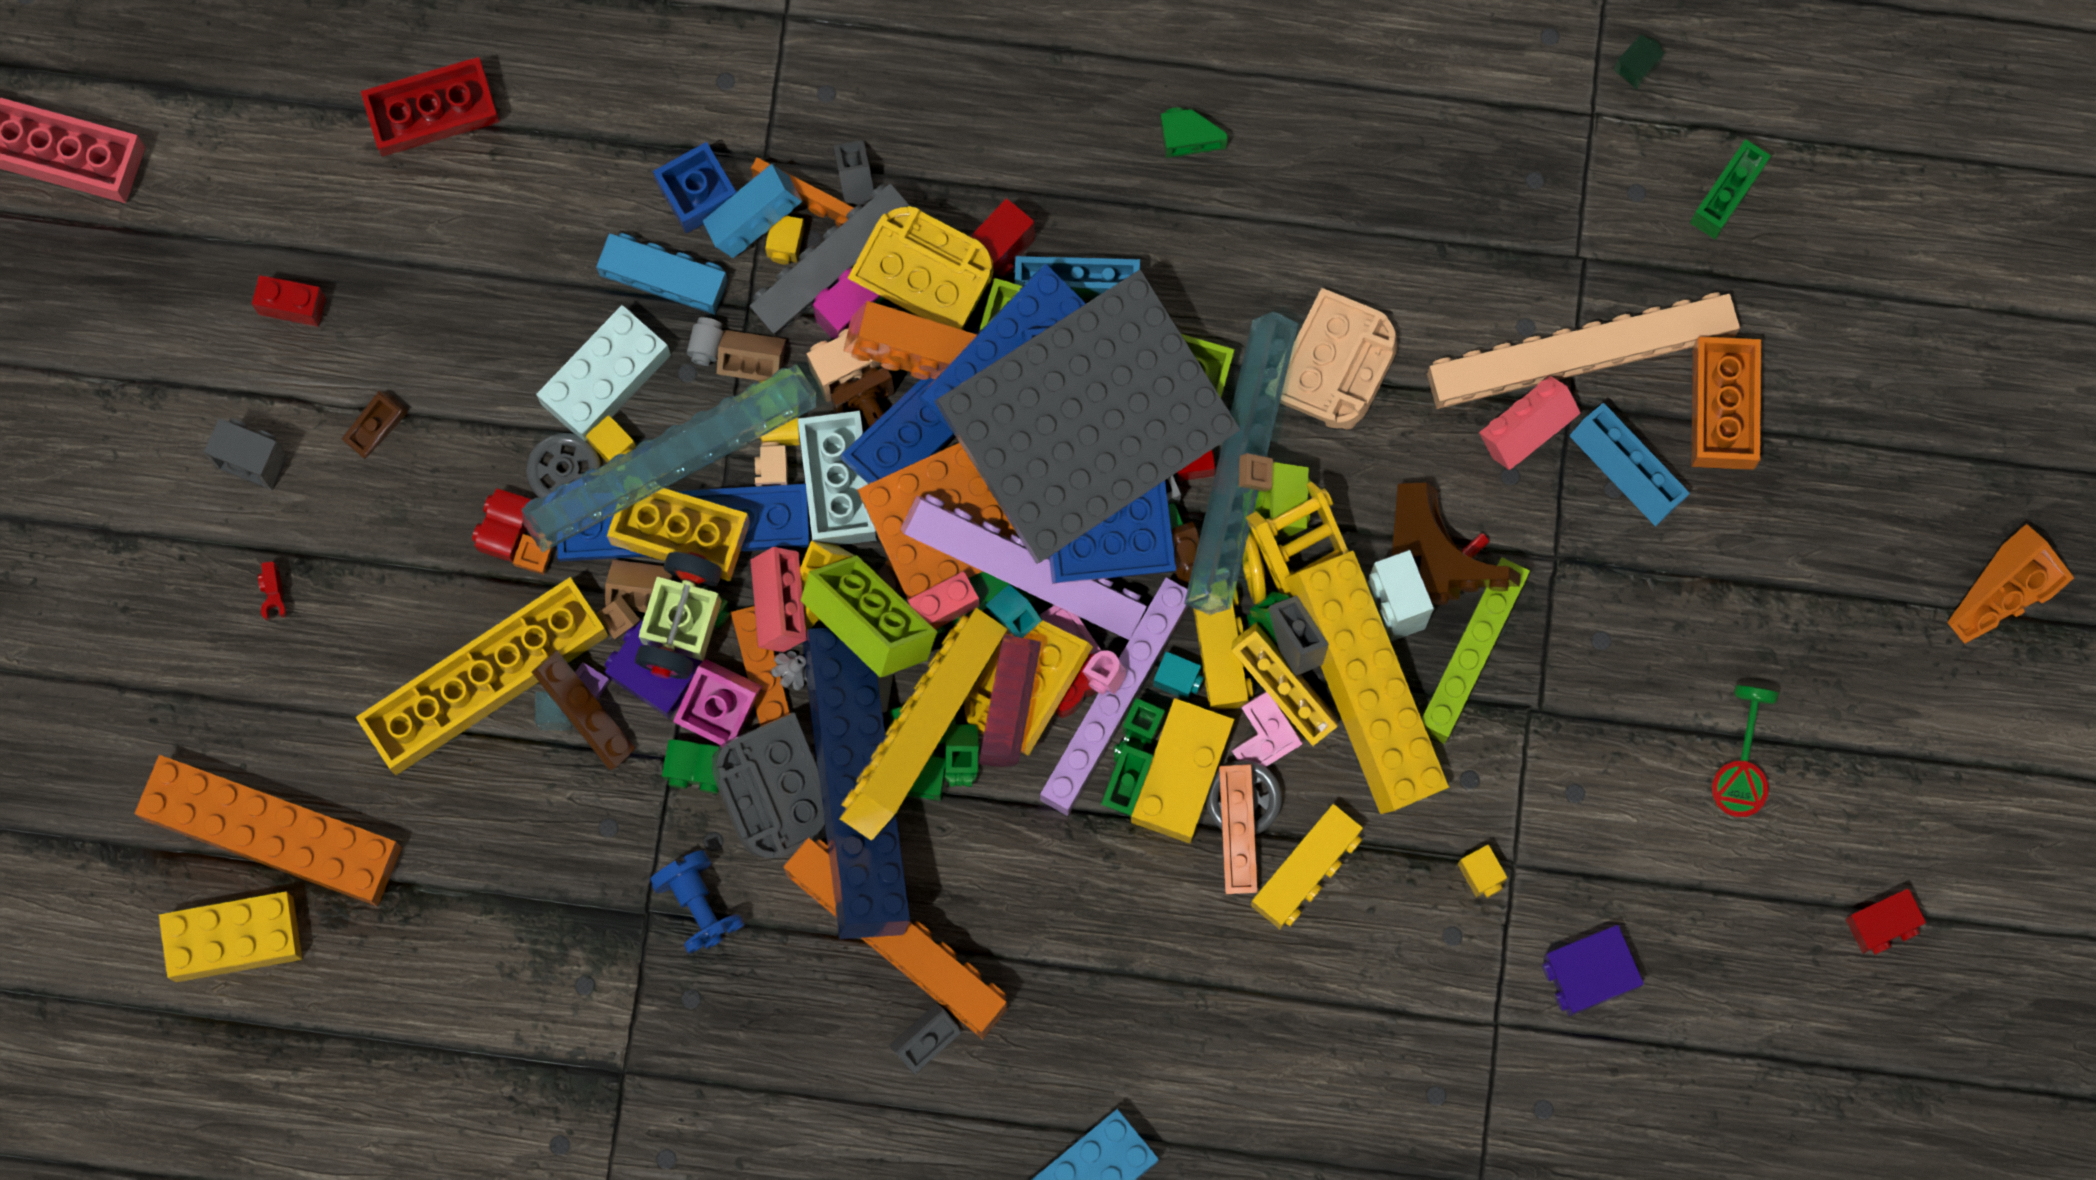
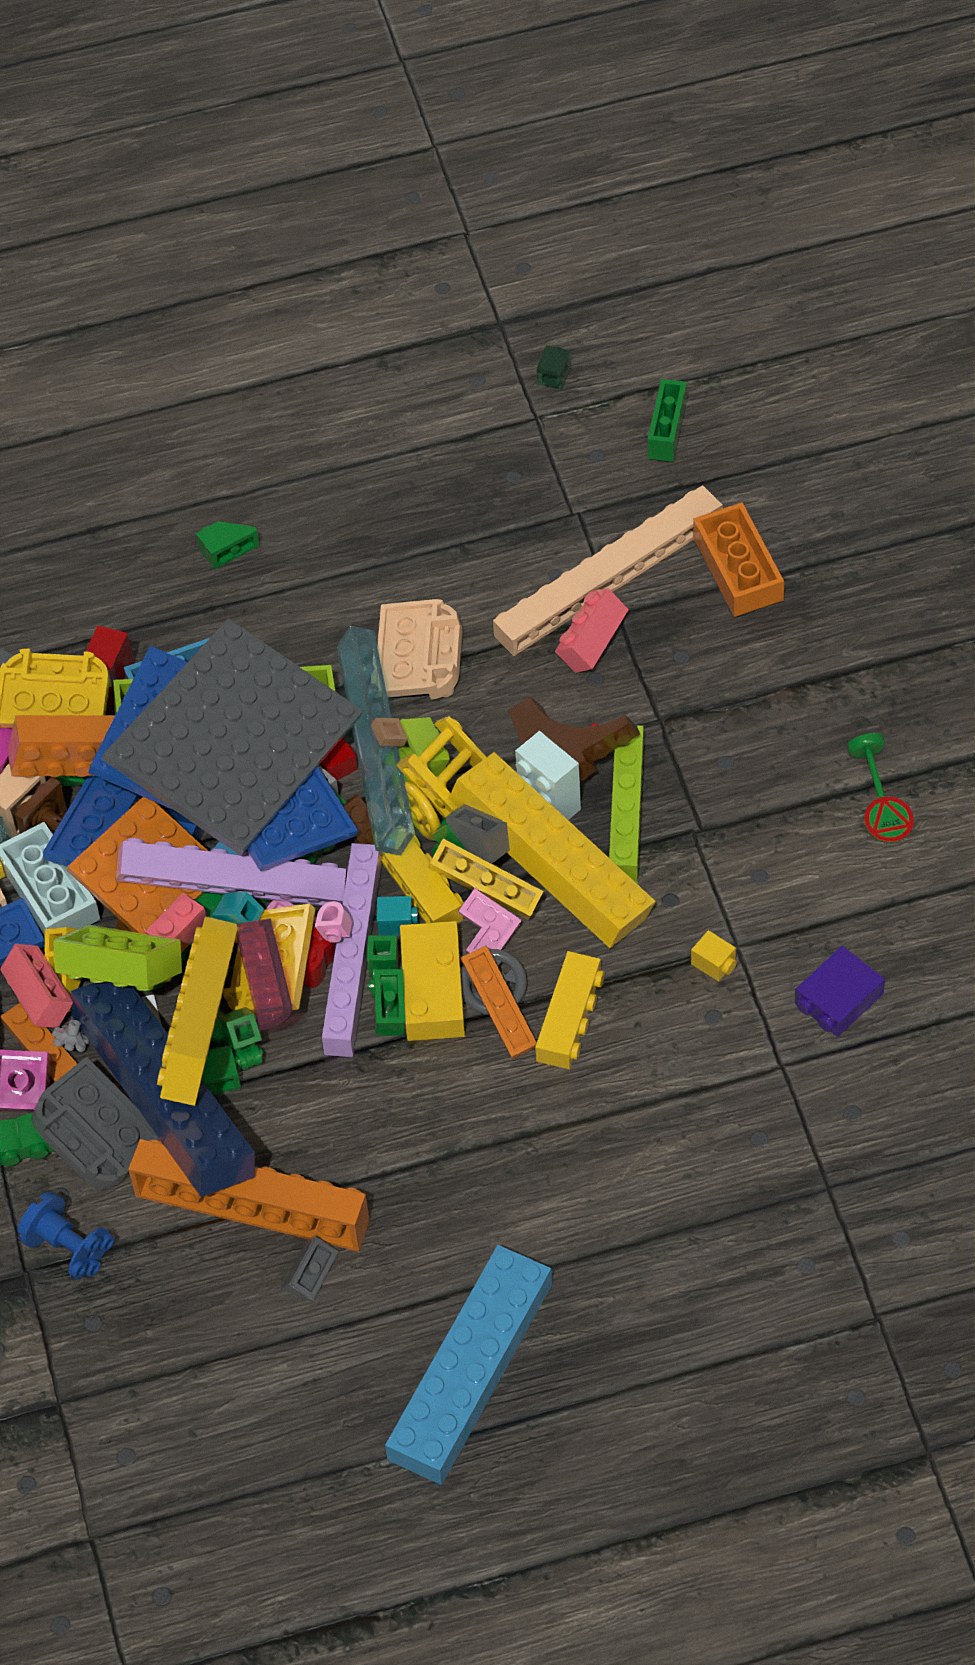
camera: 20 degrees left, 20 degrees down
(1629, 464) = (684, 628): dark azure brick -> none

